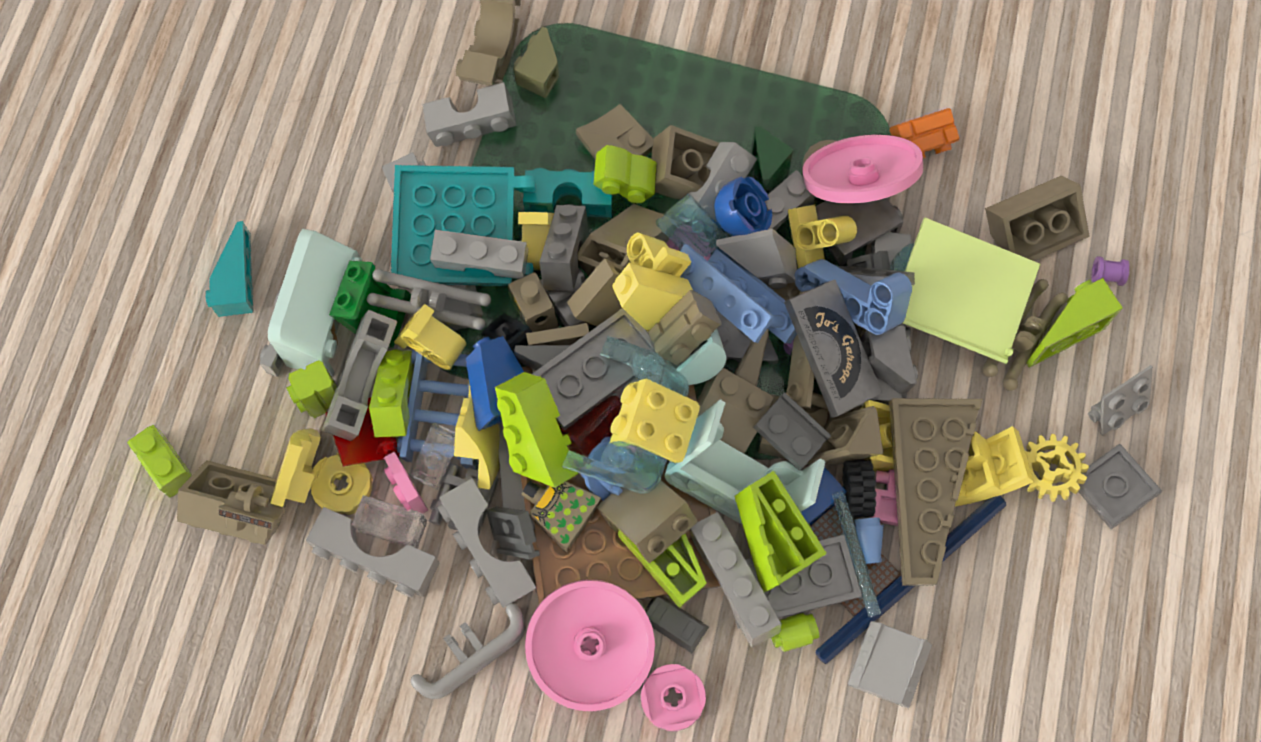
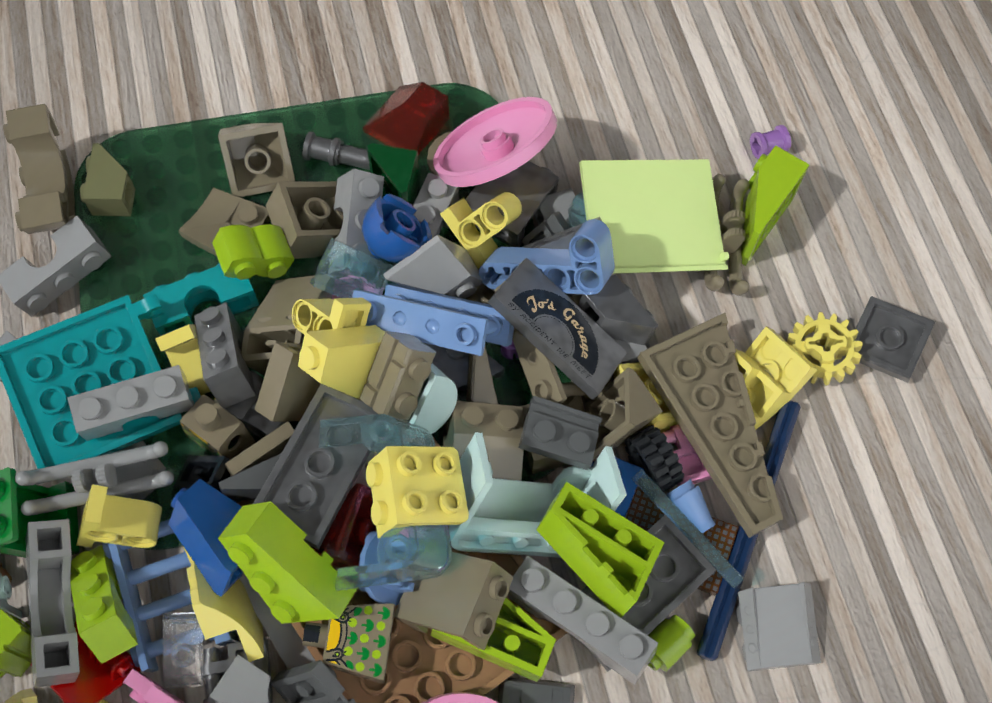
camera: 30 degrees left, 5 degrees down
(665, 93) = (255, 157): none -> dark tan slope
(730, 115) = (334, 152): none -> flat silver pin
(807, 114) = (410, 117): none -> clear red slope
(929, 131) = (539, 81): orange brick -> none
(1040, 219) = (681, 121): dark tan slope -> none
(1123, 402) = (851, 256): light grey hinge -> none

